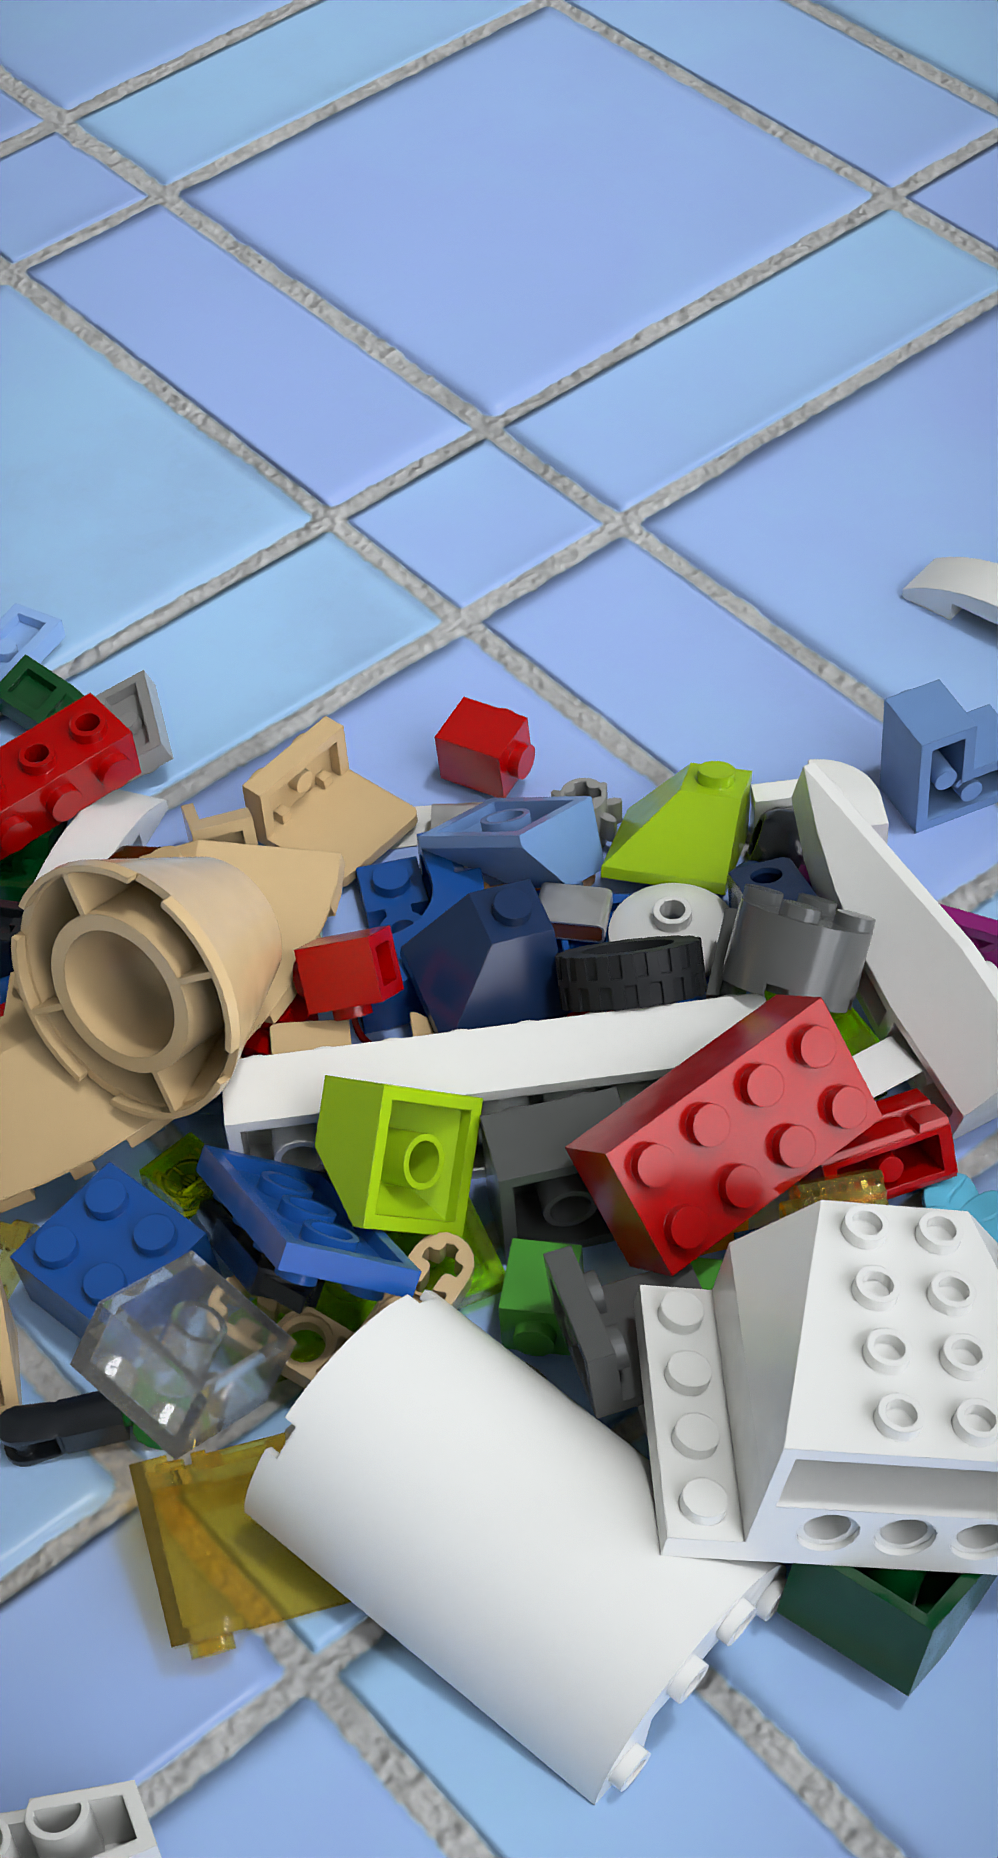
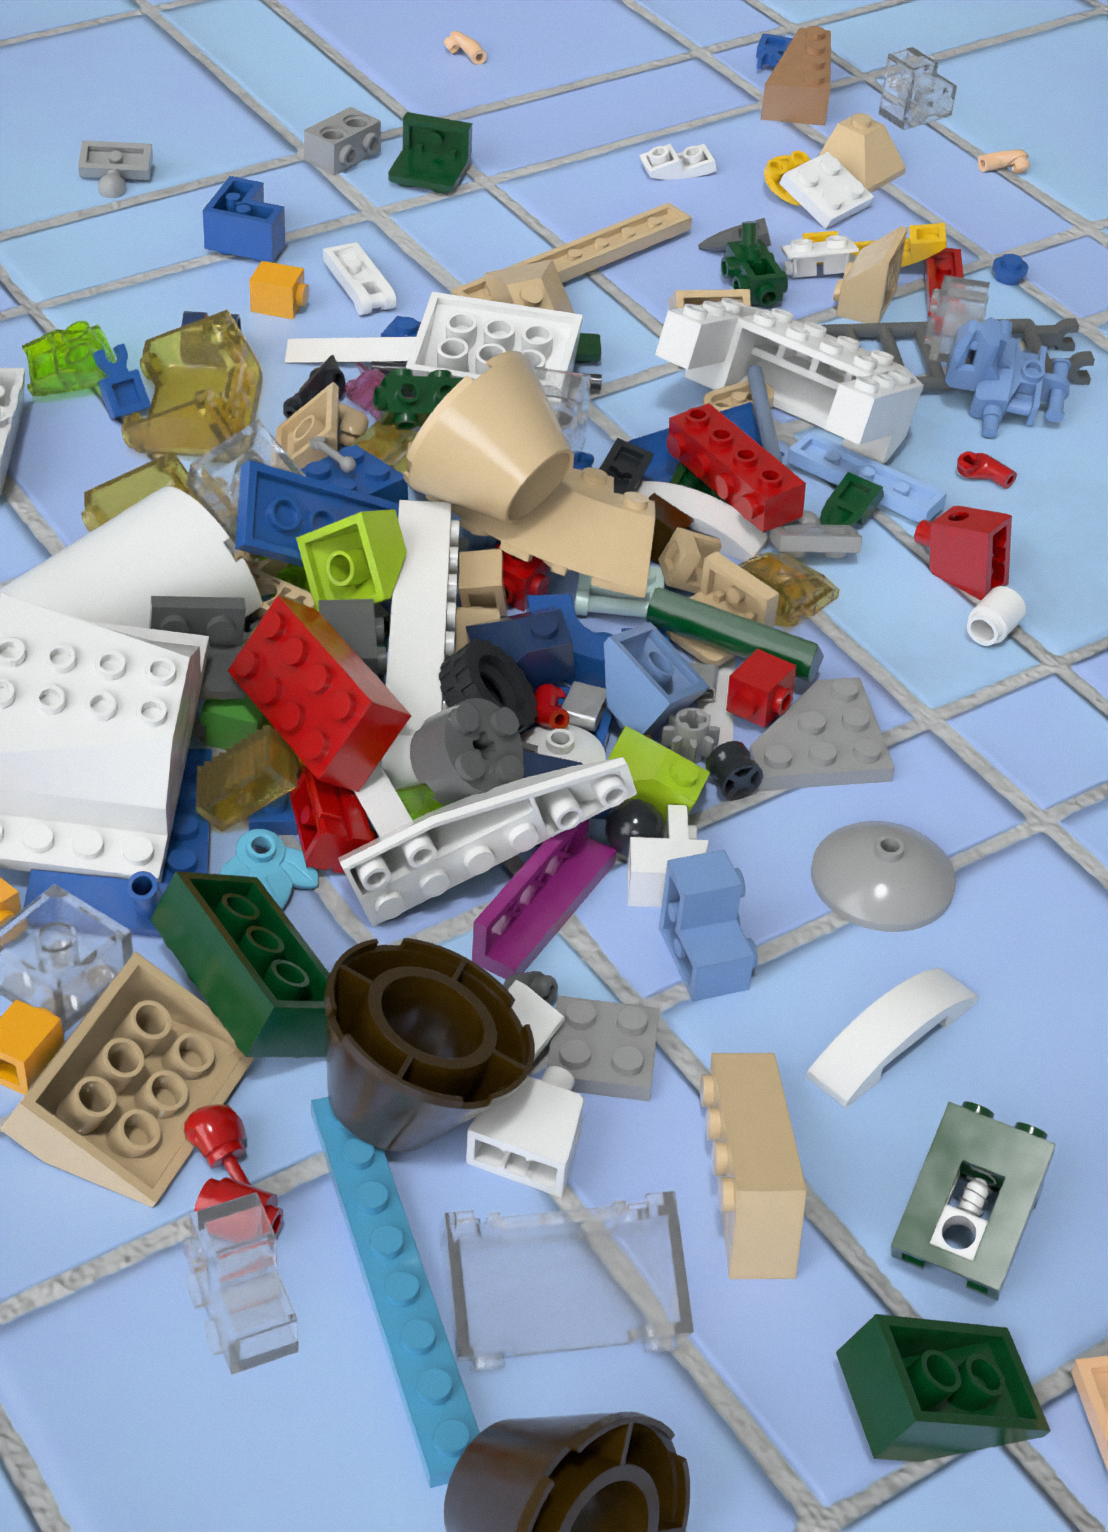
camera: 90 degrees right, 5 degrees down
(19, 1302) = (346, 463): none -> light grey hinge
(152, 568) = (968, 548): none -> red torso
(222, 757) = (799, 586): none -> clear yellow slope
(272, 553) = (996, 616): none -> white brick
(348, 972) = (523, 570): red brick -> none
(387, 774) = (731, 632): none -> brick
(561, 693) = (824, 740): none -> light grey plate
(626, 924) = (549, 710): none -> red arm
(638, 768) = (734, 770): none -> black wheel
(763, 645) = (883, 876): none -> light grey dish

